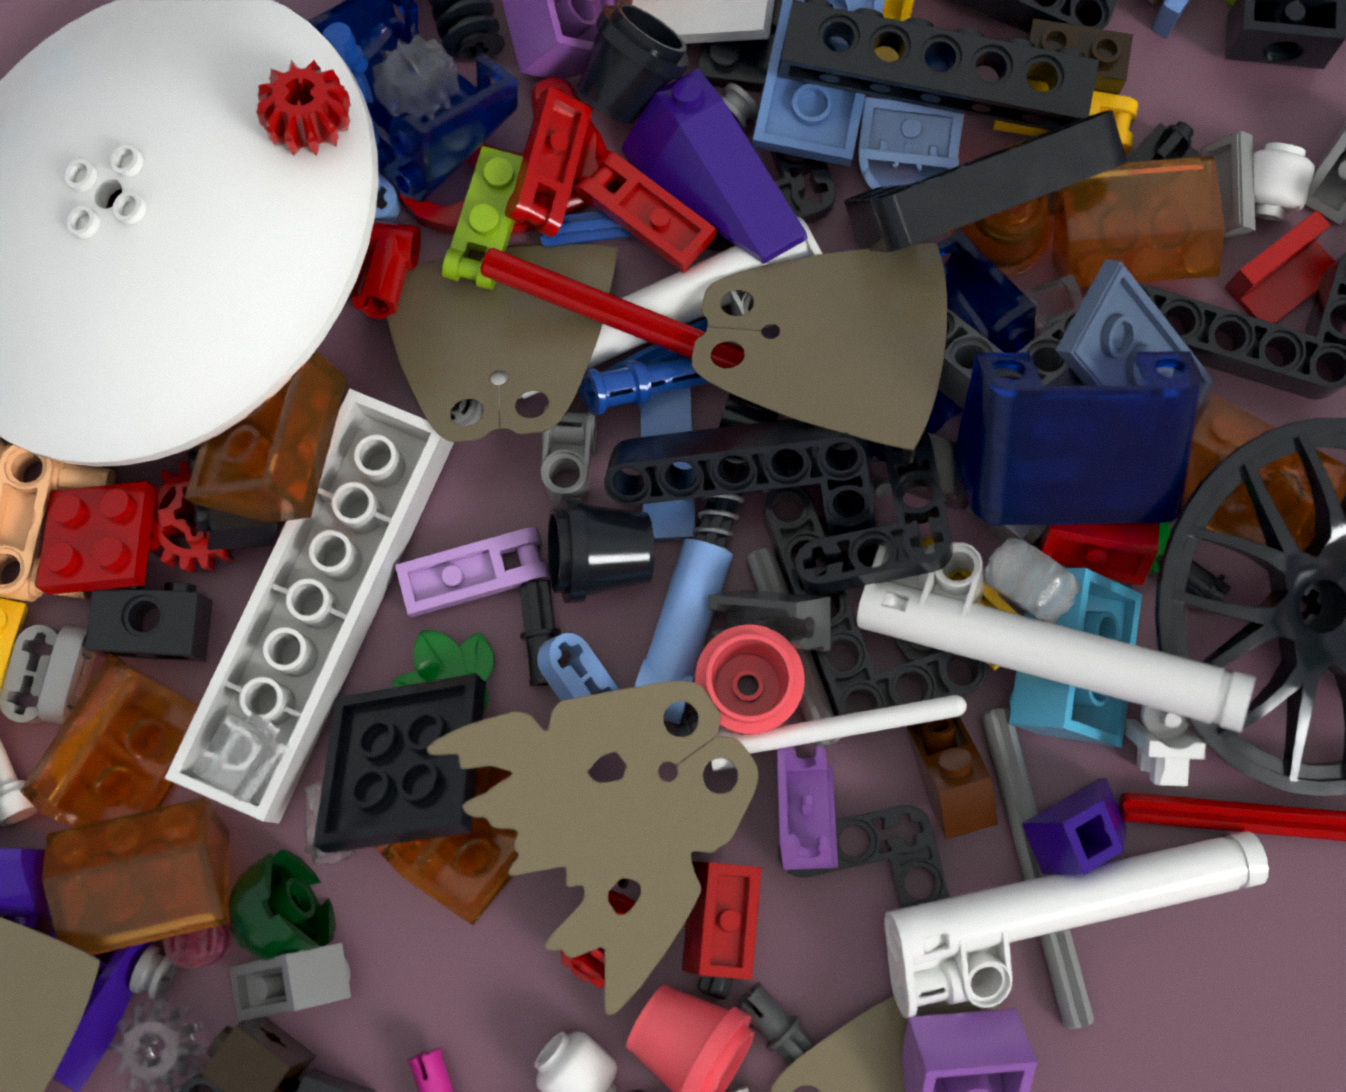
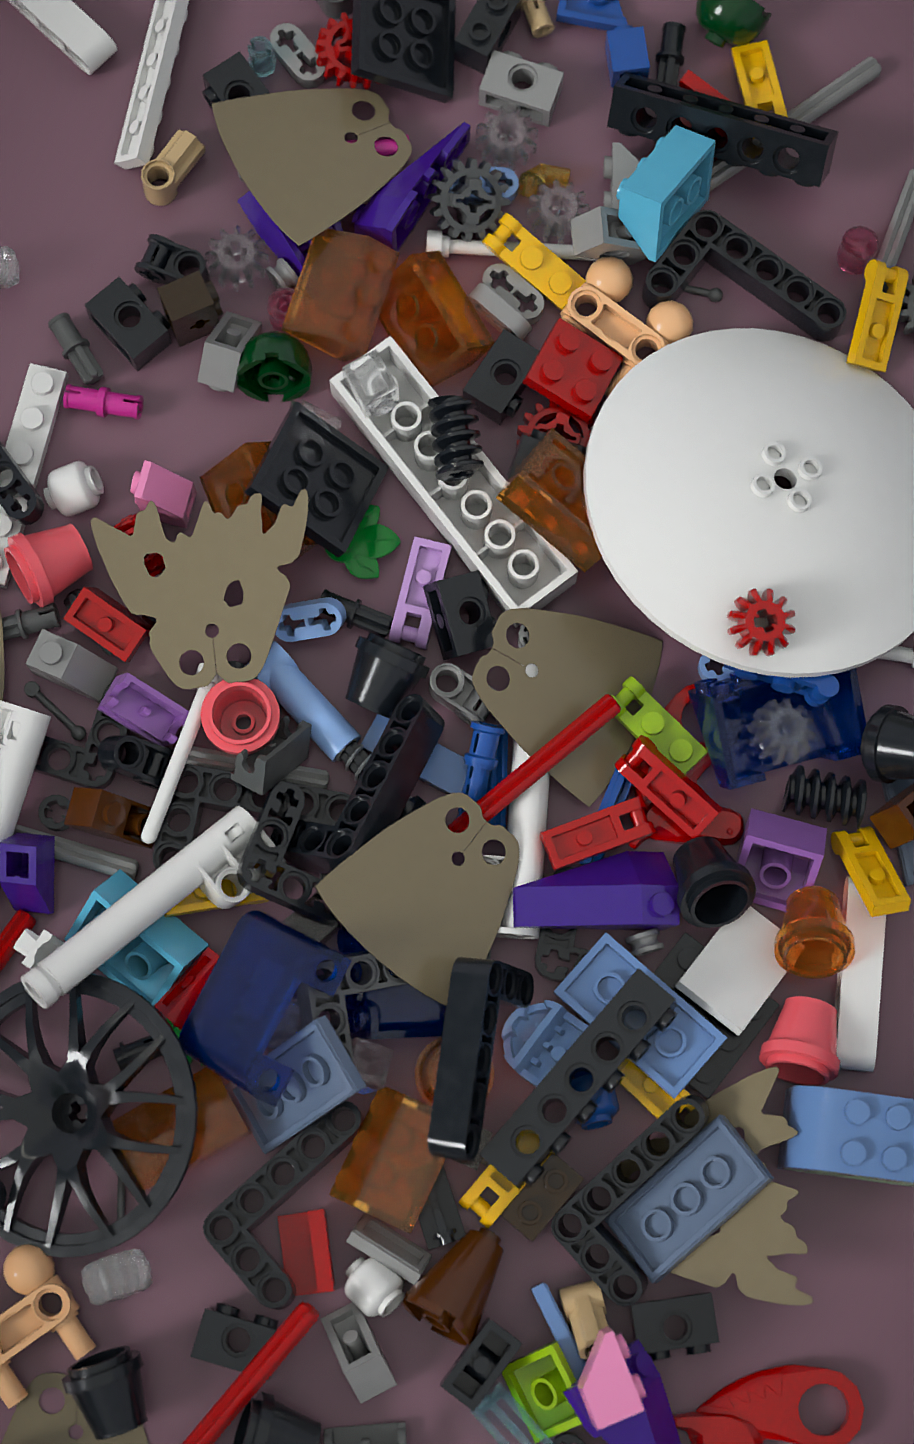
camera: 115 degrees right, 0 degrees up
(256, 613) = (454, 437): none -> black piece
(390, 255) = (667, 654): red piece -> none
(475, 501) = (444, 603): none -> black brick
(520, 950) = (170, 493): none -> bright pink slope
(801, 936) = (70, 666): none -> light grey slope
(853, 970) = (33, 690): none -> dark grey hinge
(865, 777) = (143, 760): none -> black piece
(1000, 847) = (45, 806): none -> black bush
(1031, 580) = (194, 923): clear gear -> none
(1222, 91) = (457, 1287): none -> reddish brown cone

